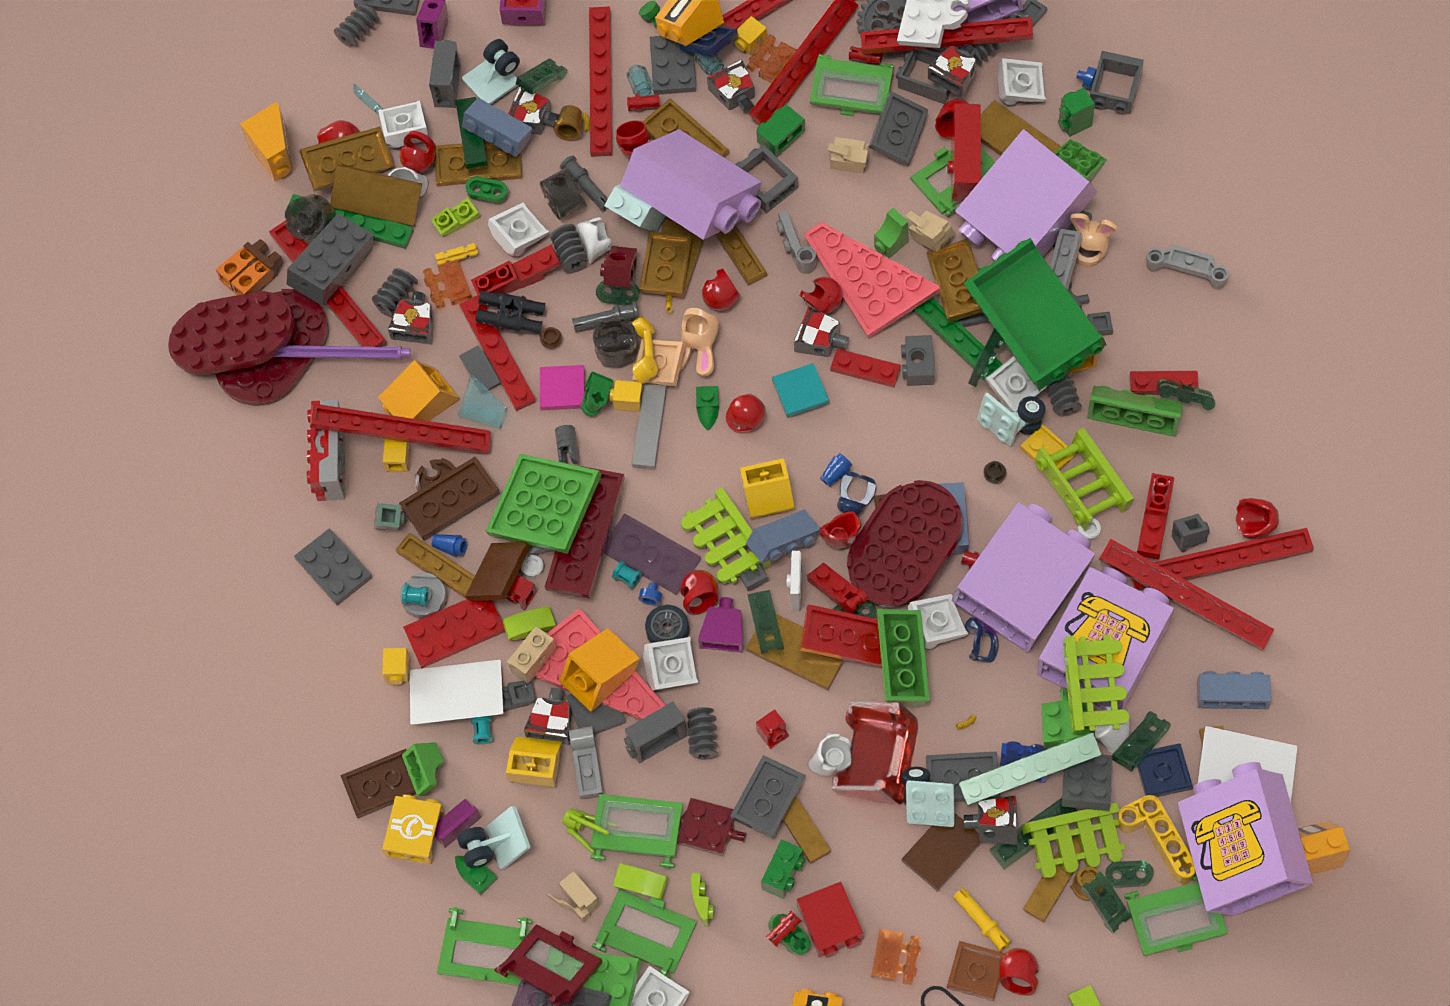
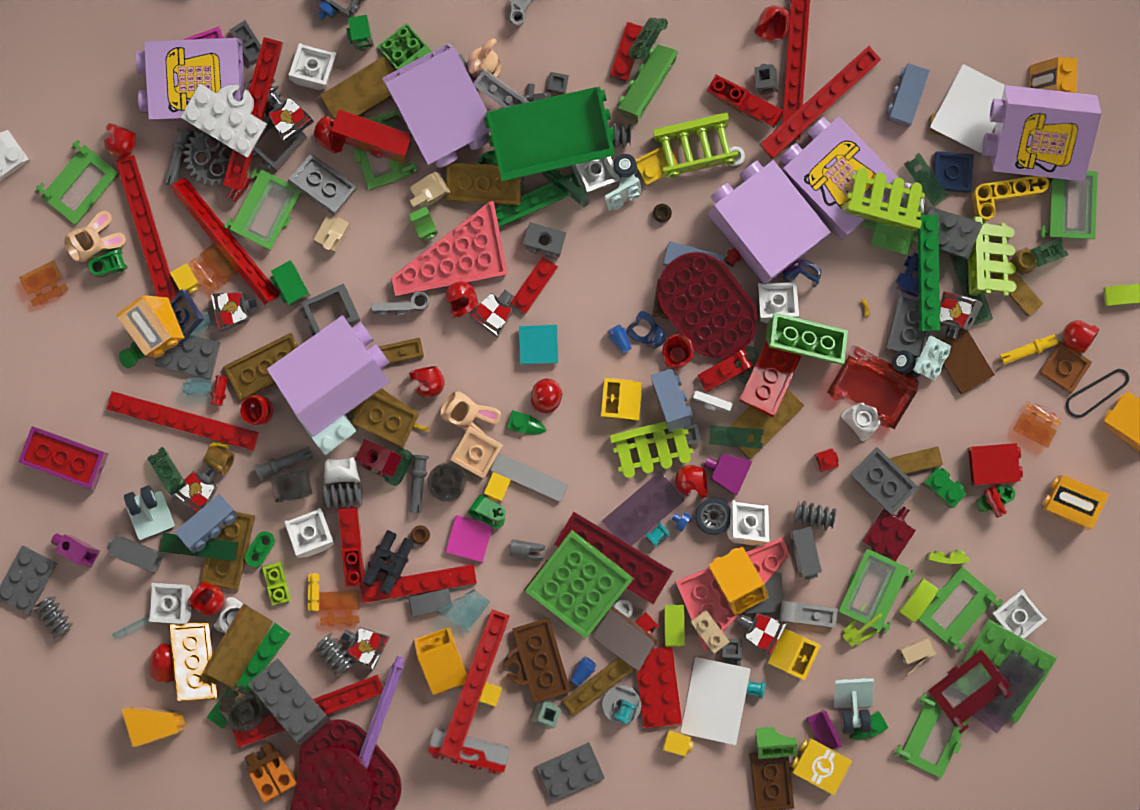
camera: 80 degrees left, 20 degrees up
(647, 366) = (483, 463): yellow piece -> none
(1128, 874) = (1026, 227): clear green plate -> none

